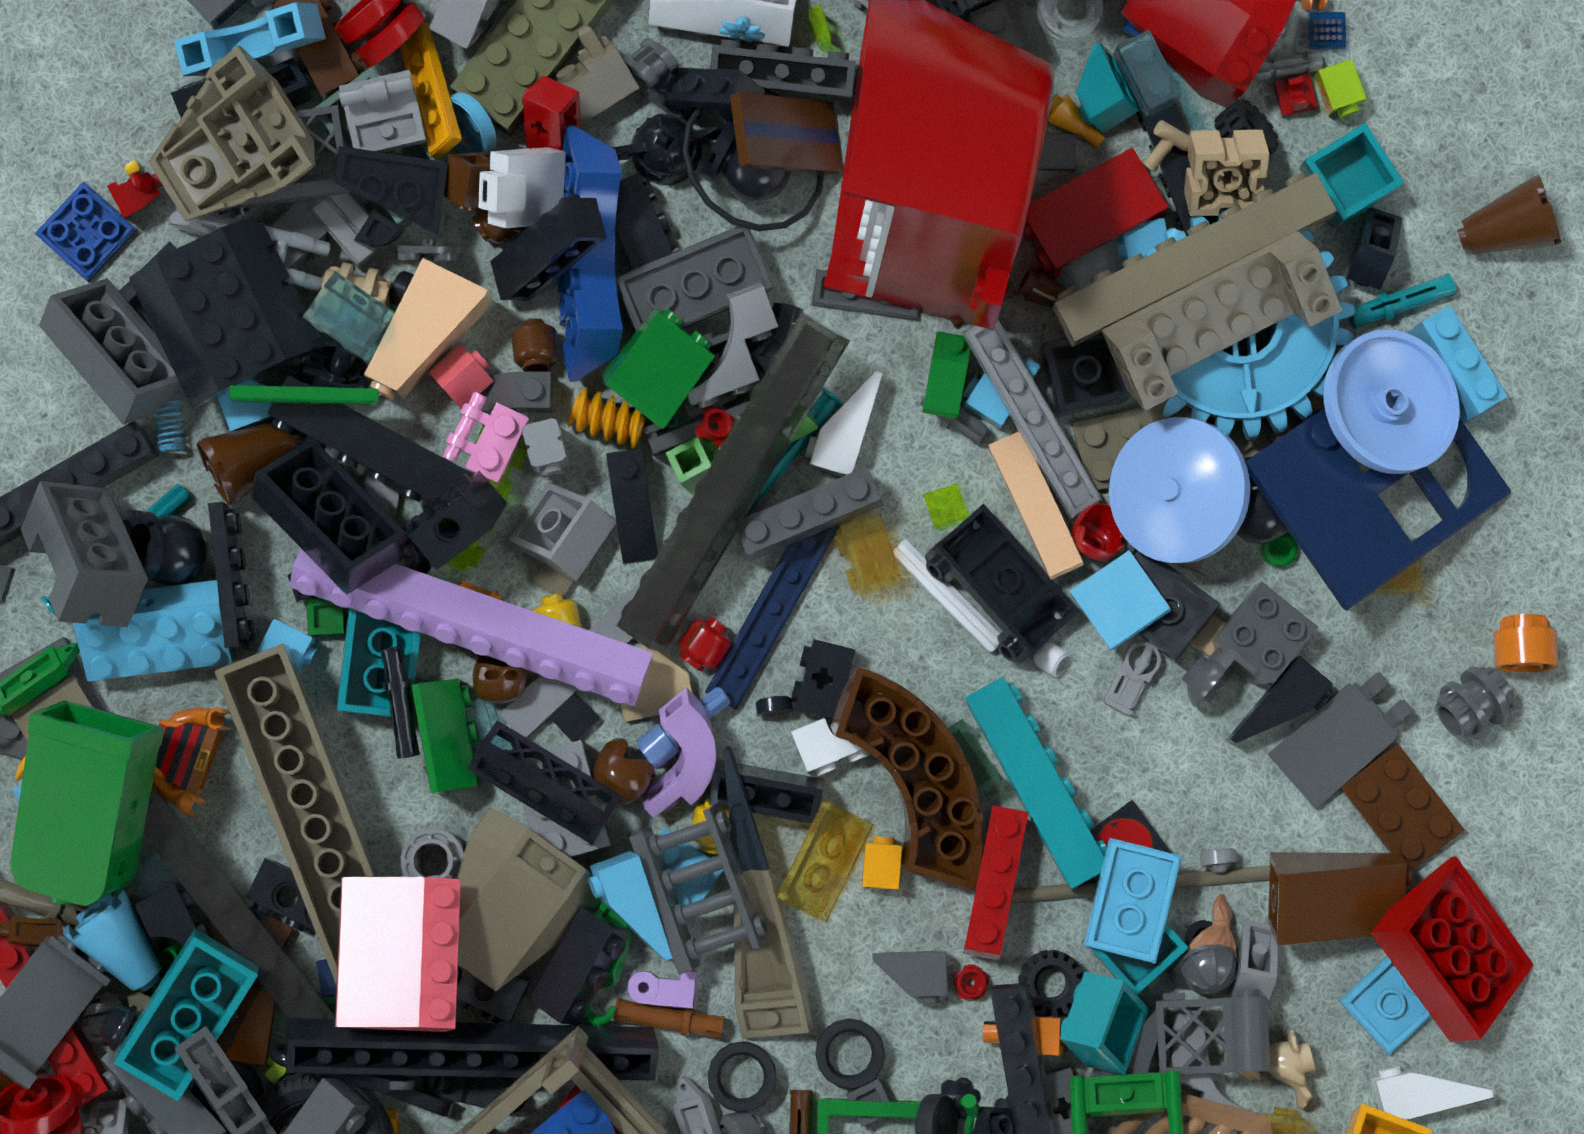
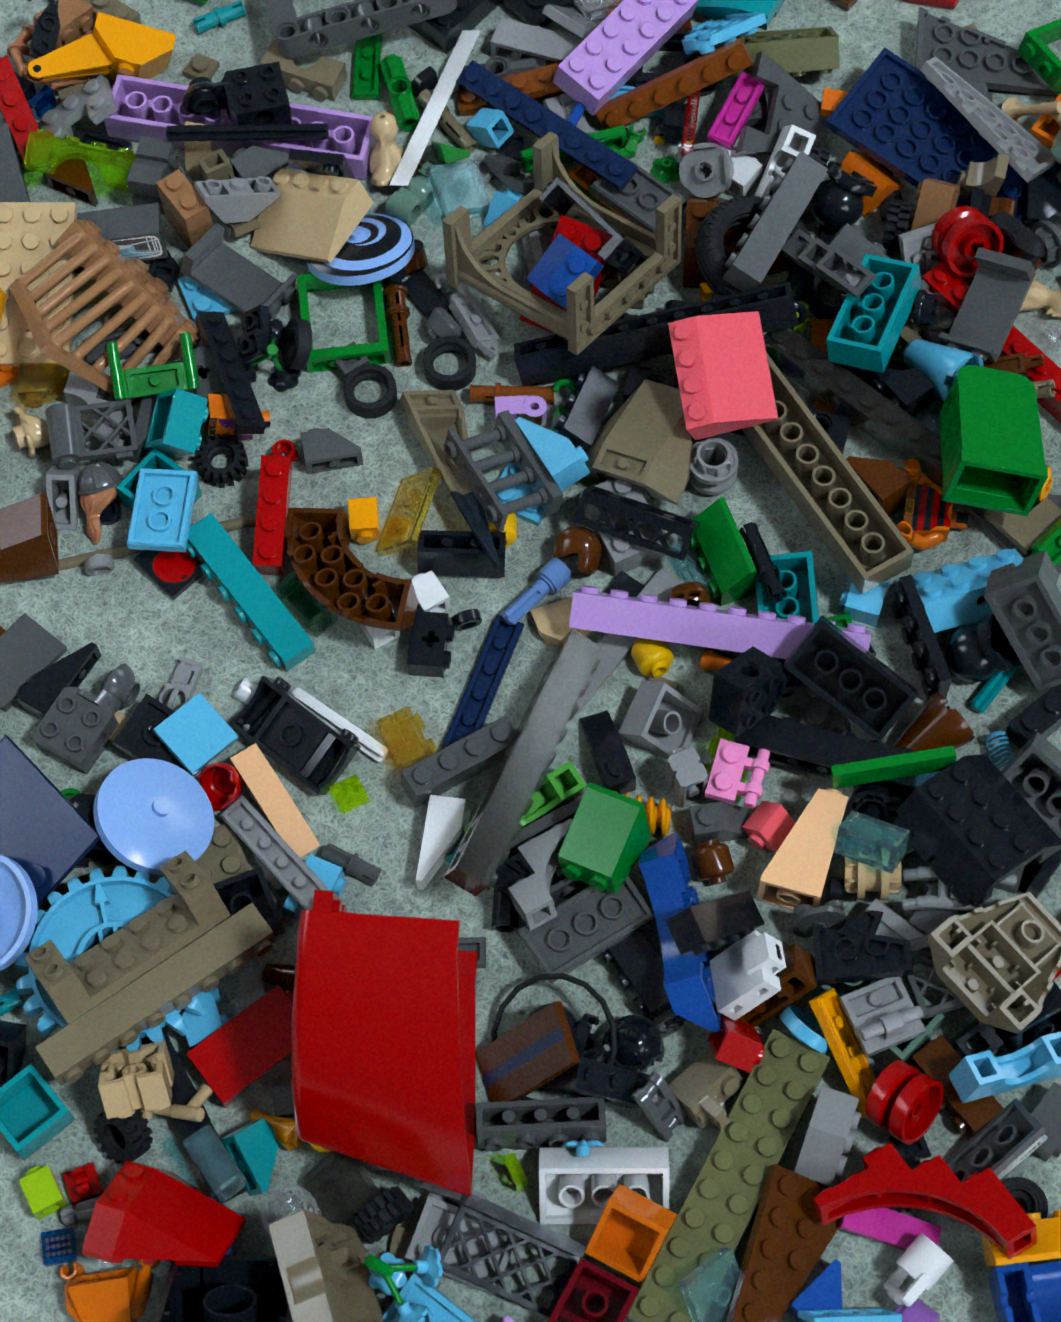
camera: 175 degrees right, 20 degrees down
(234, 790) = (884, 481): none -> reddish brown slope
(691, 727) = (523, 560): lavender arch -> none
(704, 643) = (530, 656): red head -> none
(714, 416) = (542, 804): red plate -> none
(946, 375) = (361, 882): green slope -> none

